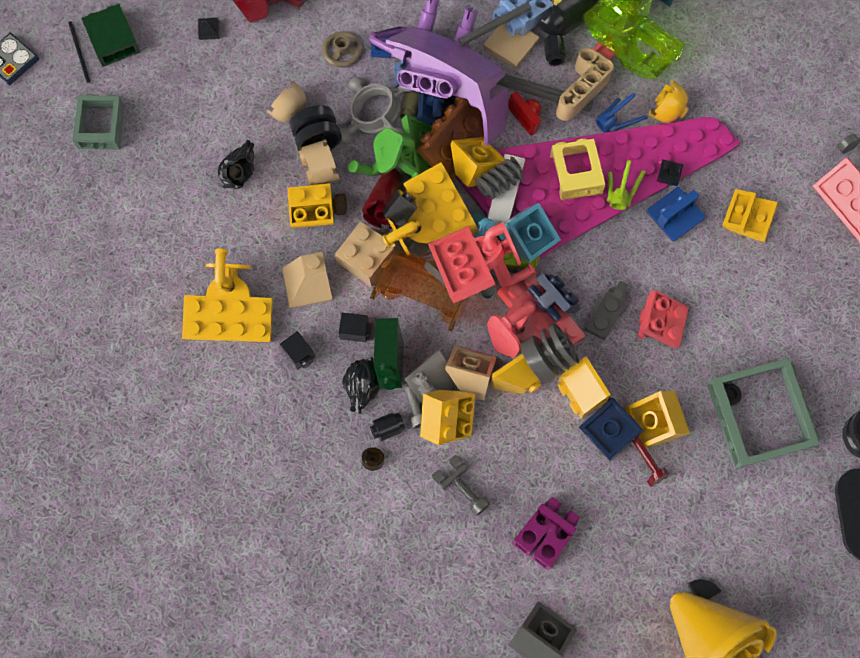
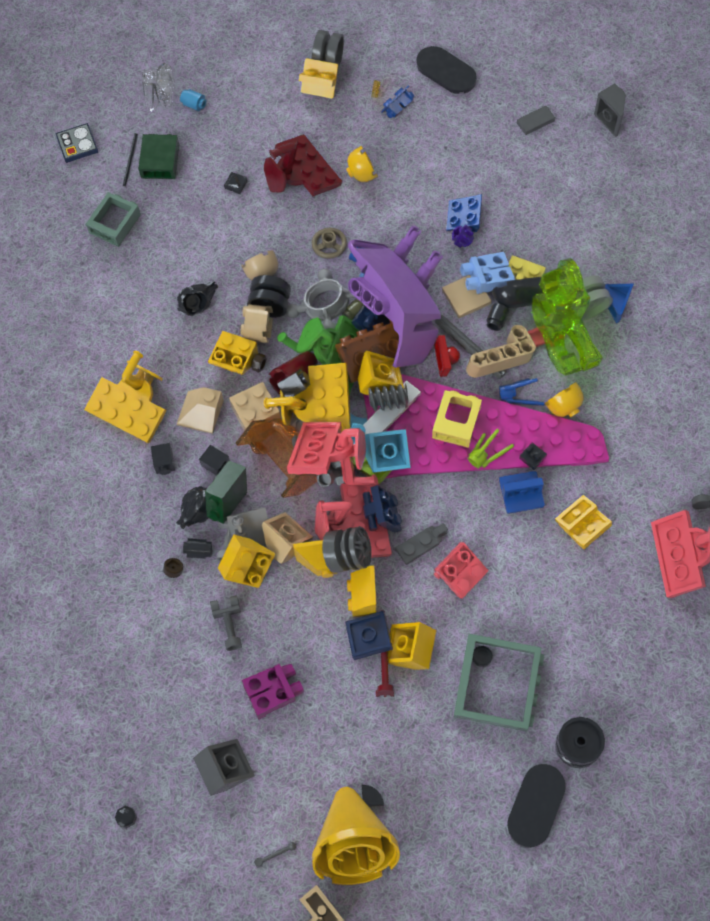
camera: 30 degrees right, 5 degrees down
(494, 24) = (453, 274): dark grey bar -> none

